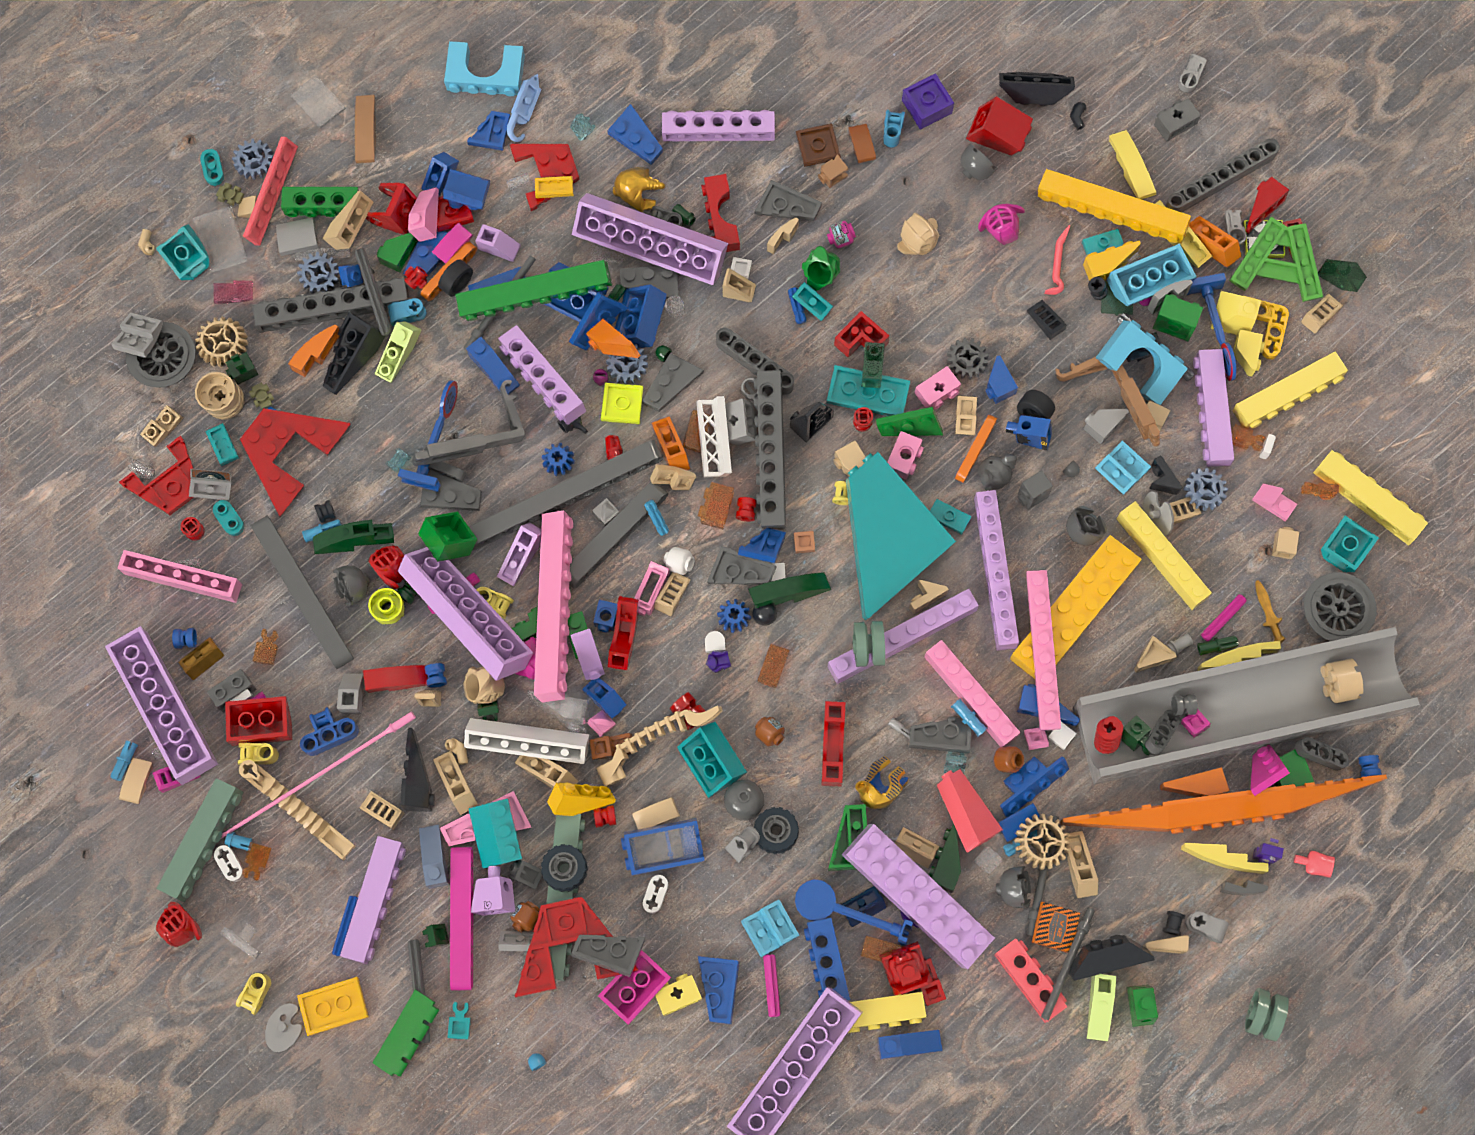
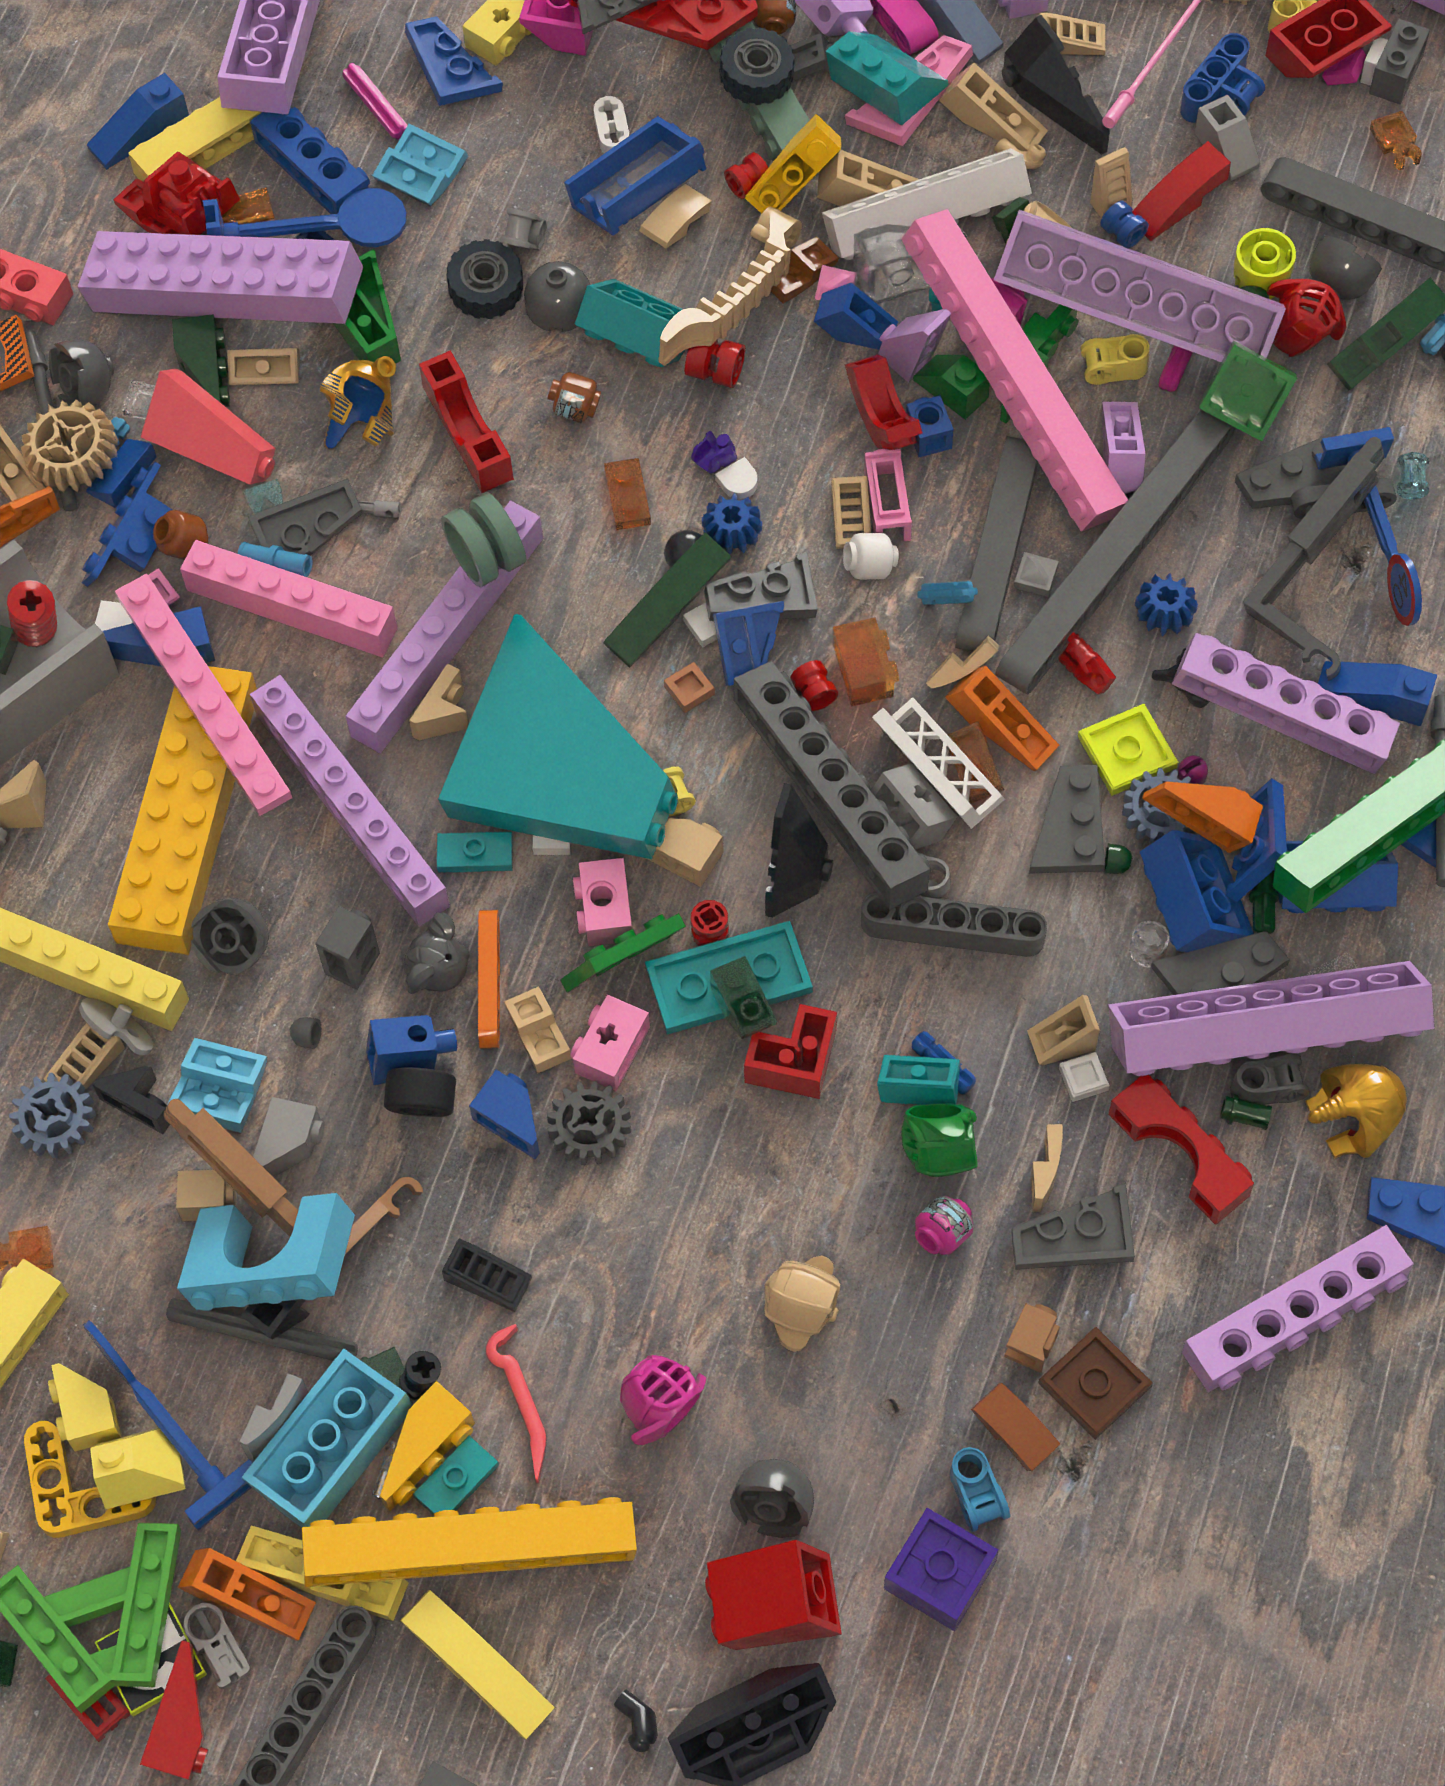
camera: 150 degrees right, 10 degrees down
(1177, 317) = (236, 1382): green container -> none
(1214, 408) = (101, 1269): lavender brick -> none

